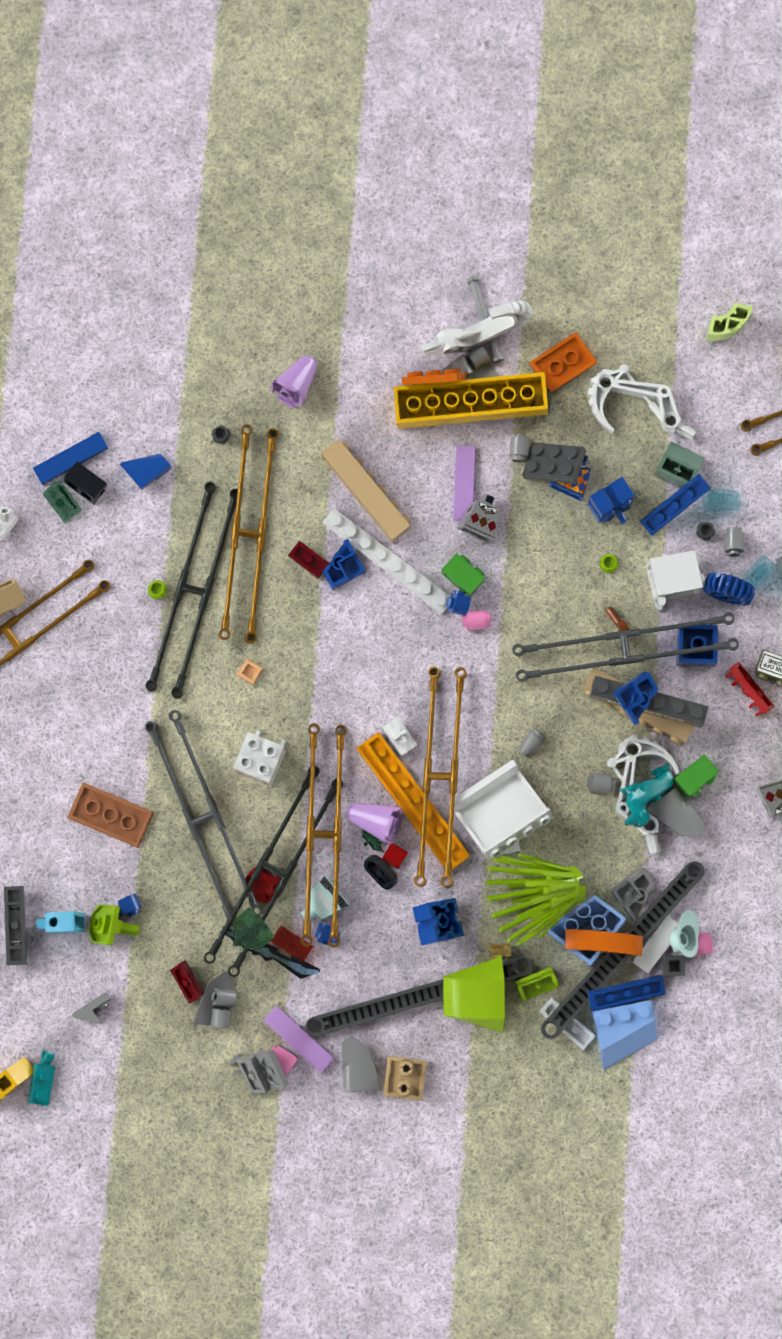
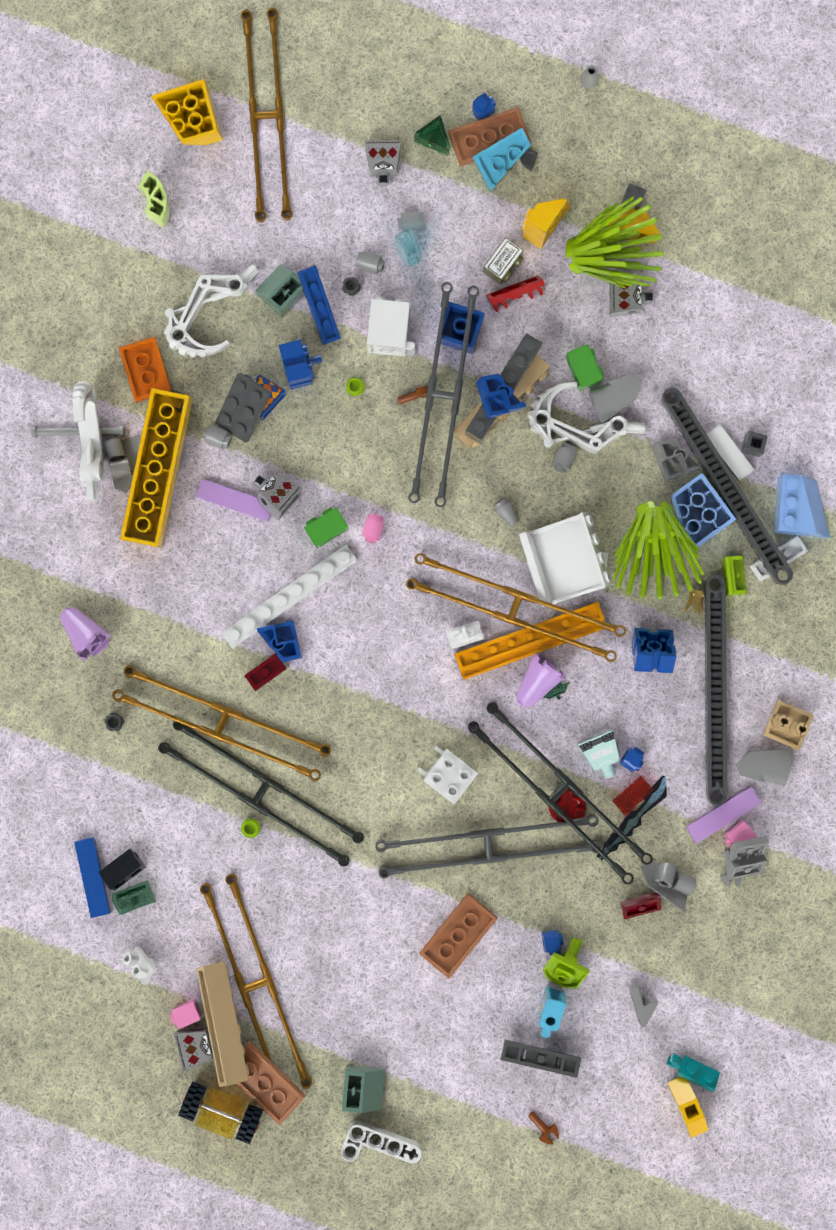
camera: 80 degrees left, 5 degrees up
(146, 469) = (126, 805): blue slope -> none
(249, 671) = (358, 760): light nougat tile -> none
(251, 931) = (614, 832): clear green slope -> none
(335, 835) = (542, 724): pearl gold bar -> none
(365, 490) = (213, 597): tan brick -> none
(380, 872) = (588, 691): black plate -> none
(394, 855) = (576, 673): red tile -> none
(433, 376) = (122, 497): orange plate -> none
(458, 603) = (352, 540): blue plate -> none
(476, 994) = (731, 634): lime wedge -> none
(603, 942) = (718, 501): orange slope -> none
(626, 992) = (768, 494): blue tile -> none
(640, 794) = (588, 419): teal animal -> none
(685, 935) = (731, 424): light aqua piece -> none
(704, 944) = (740, 412): bright pink plate -> none
(720, 501) = (327, 262): clear light blue slope -> none
(729, 589) = (416, 279): blue gear -> none

